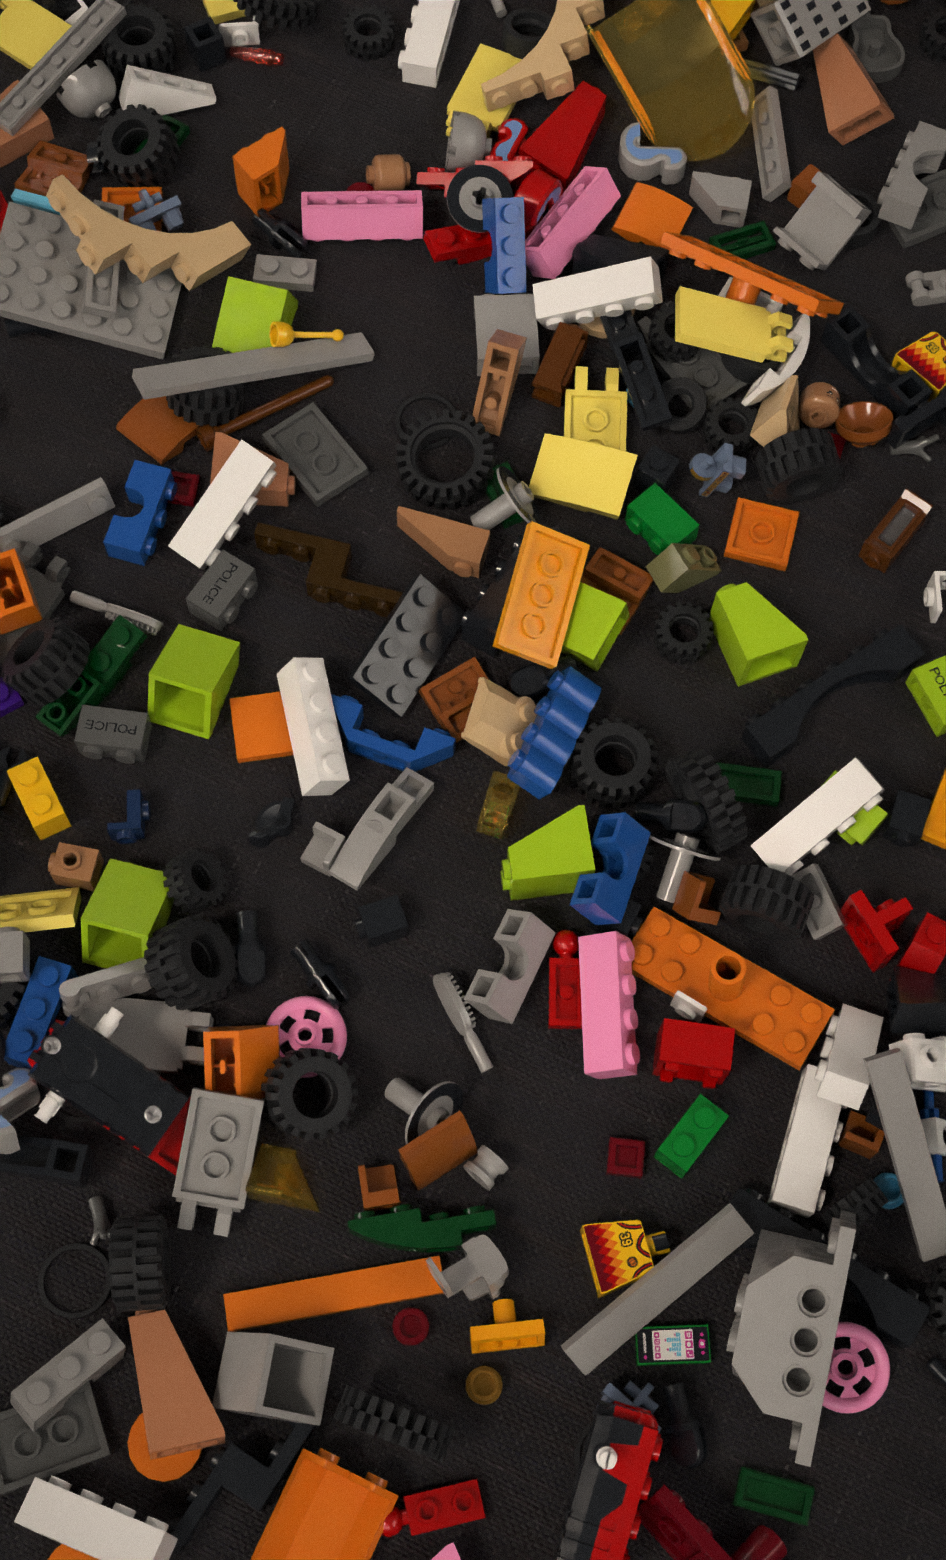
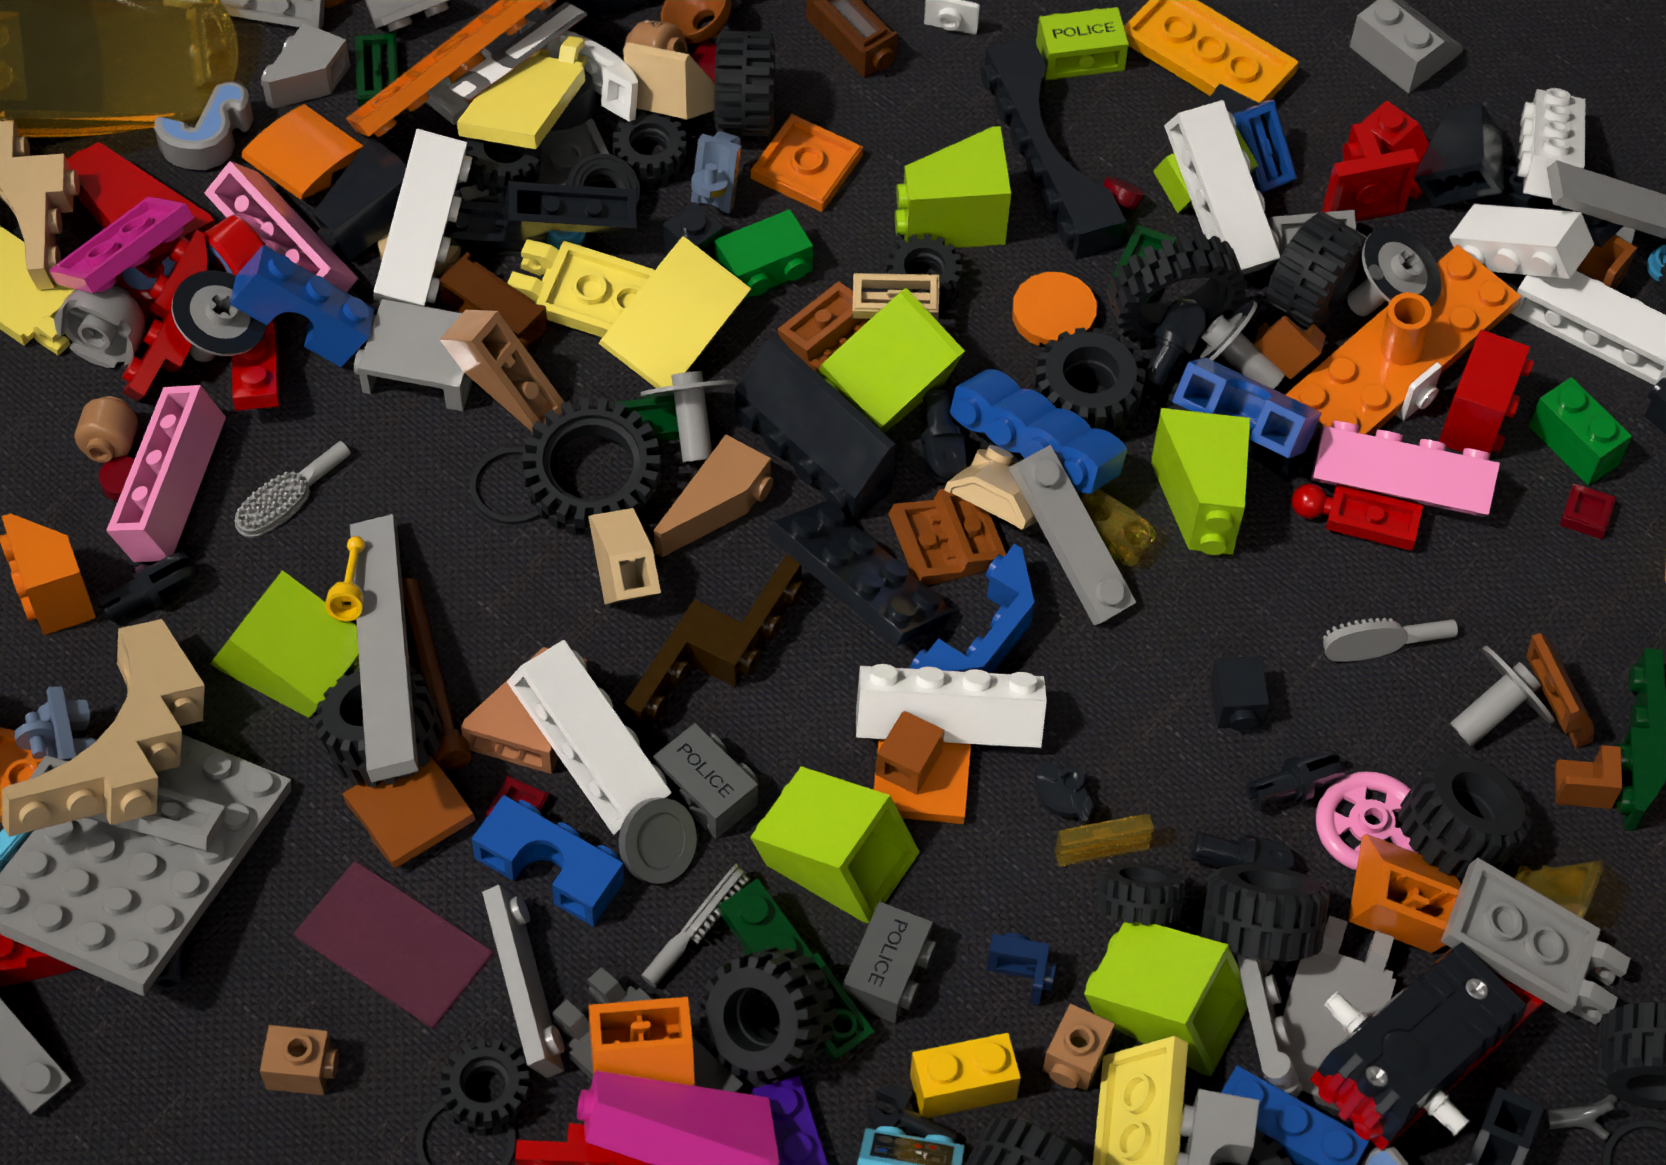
camera: 75 degrees left, 10 degrees down
(69, 444) = (393, 944): none -> clear pink piece
(166, 570) = (657, 840): none -> dark grey piece
(239, 851) = (1103, 839): none -> clear yellow tile
(266, 707) = (909, 752): none -> dark orange panel
(285, 272) = (210, 600): light grey plate -> none
(315, 454) = (519, 618): dark grey plate -> none
(323, 848) = (1125, 737): light grey panel -> none
(372, 493) = (623, 556): none -> tan slope
(376, 290) = (284, 495): none -> light grey piece
(379, 826) = (1115, 661): light grey slope -> none
(472, 774) = (1072, 535): none -> light grey plate
(485, 1167) = (1582, 653): light grey wheel -> none
(512, 127) = (122, 245): none -> dark pink plate
(524, 945) = (1315, 545): light grey arch -> none
(541, 595) = (862, 379): light orange plate -> none
(653, 637) = (870, 303): none -> tan tile
(683, 567) = (835, 248): olive slope -> none
(683, 726) = (1051, 305): none -> orange tile
(765, 310) = (517, 51): none -> sticker
(781, 962) = (1394, 265): none -> piece
(807, 754) = (1123, 192): none -> dark red tile
(903, 828) = (1279, 142): none -> blue tile

